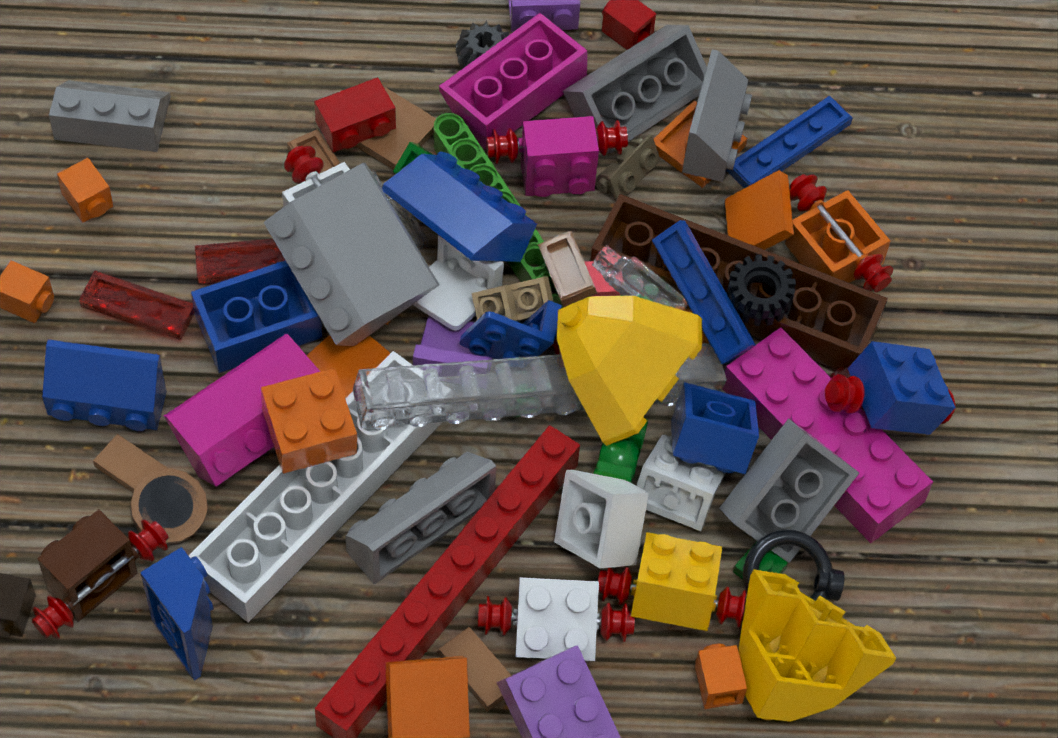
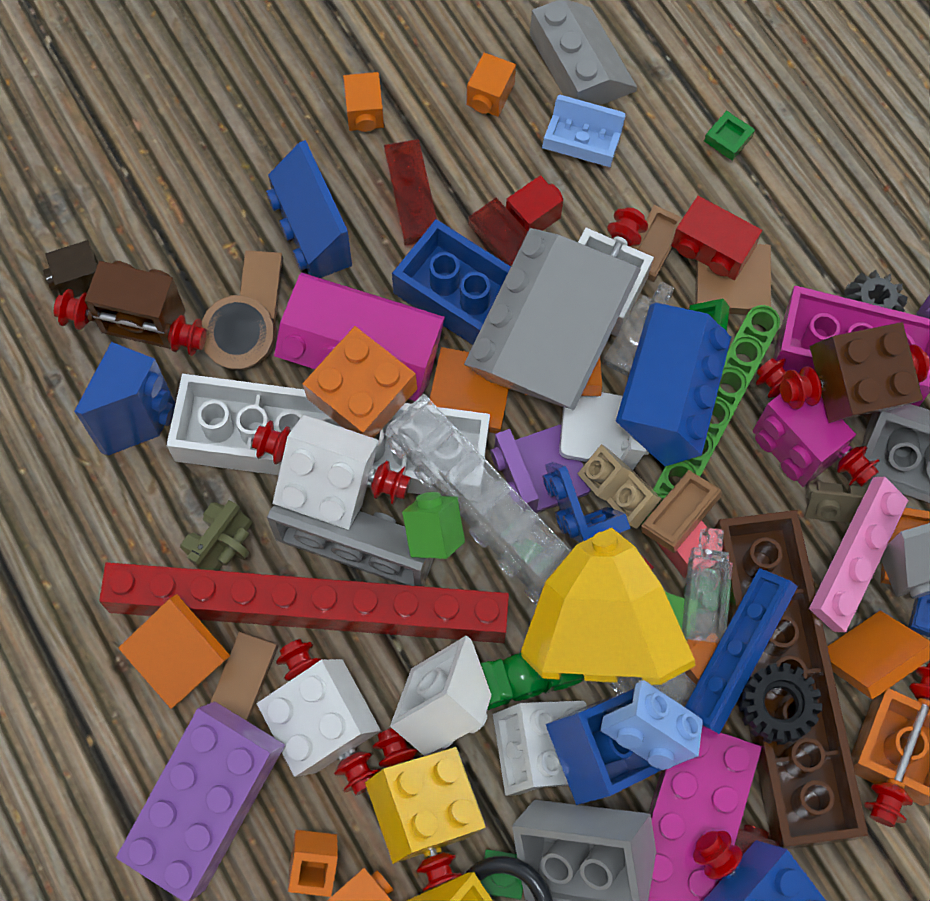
camera: 60 degrees right, 10 degrees up
(184, 149) = (584, 130): none -> light blue bracket
(224, 220) = (536, 204): none -> red brick
(267, 55) = (729, 135): none -> green plate
(339, 607) = (221, 540): none -> olive hips
(362, 485) = (327, 470): none -> white brick
(468, 432) = (433, 526): none -> bright green brick
(553, 82) = (859, 373): none -> reddish brown brick
(670, 688) = (313, 863): none -> orange brick
(681, 175) = (858, 554): none -> bright pink plate
(729, 378) = (655, 728): none -> light blue bracket

